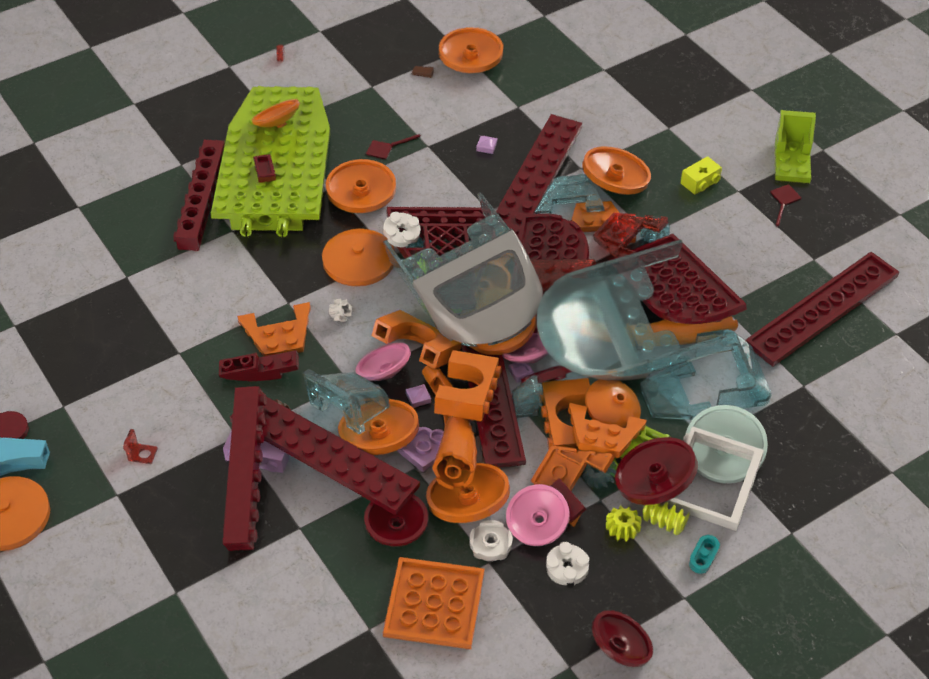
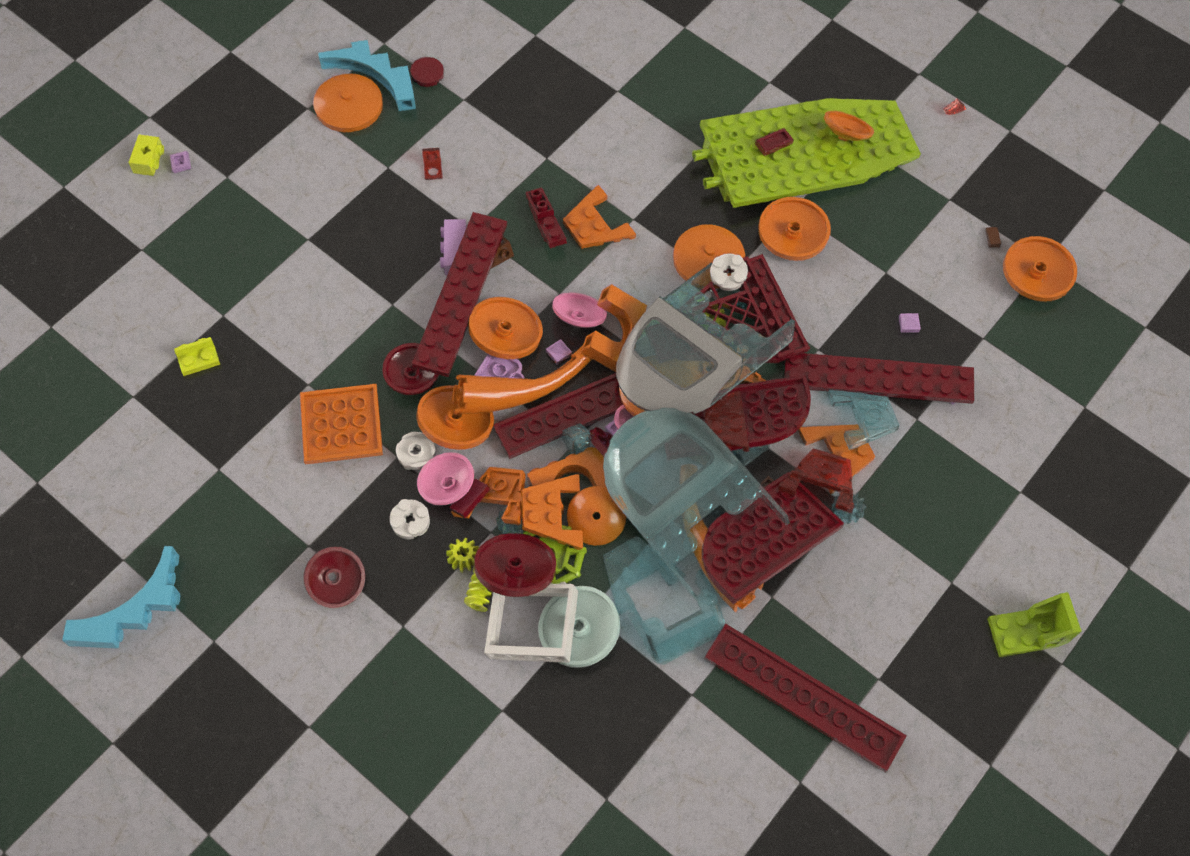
camera: 70 degrees right, 15 degrees up
(200, 196) = (689, 114): dark red brick -> none
(244, 469) = (422, 238): dark red brick -> none
(340, 310) = (628, 262): white gear -> none
(349, 392) = (524, 293): clear light blue windscreen -> none
(382, 149) = (864, 233): dark red piece -> none
(470, 402) = (544, 392): orange arch -> none
(616, 170) = (917, 449): orange dish -> none
(701, 175) = (947, 528): neon yellow brick -> none
(703, 555) = (451, 630): teal plate -> none
(785, 196) = (965, 633): dark red piece -> none

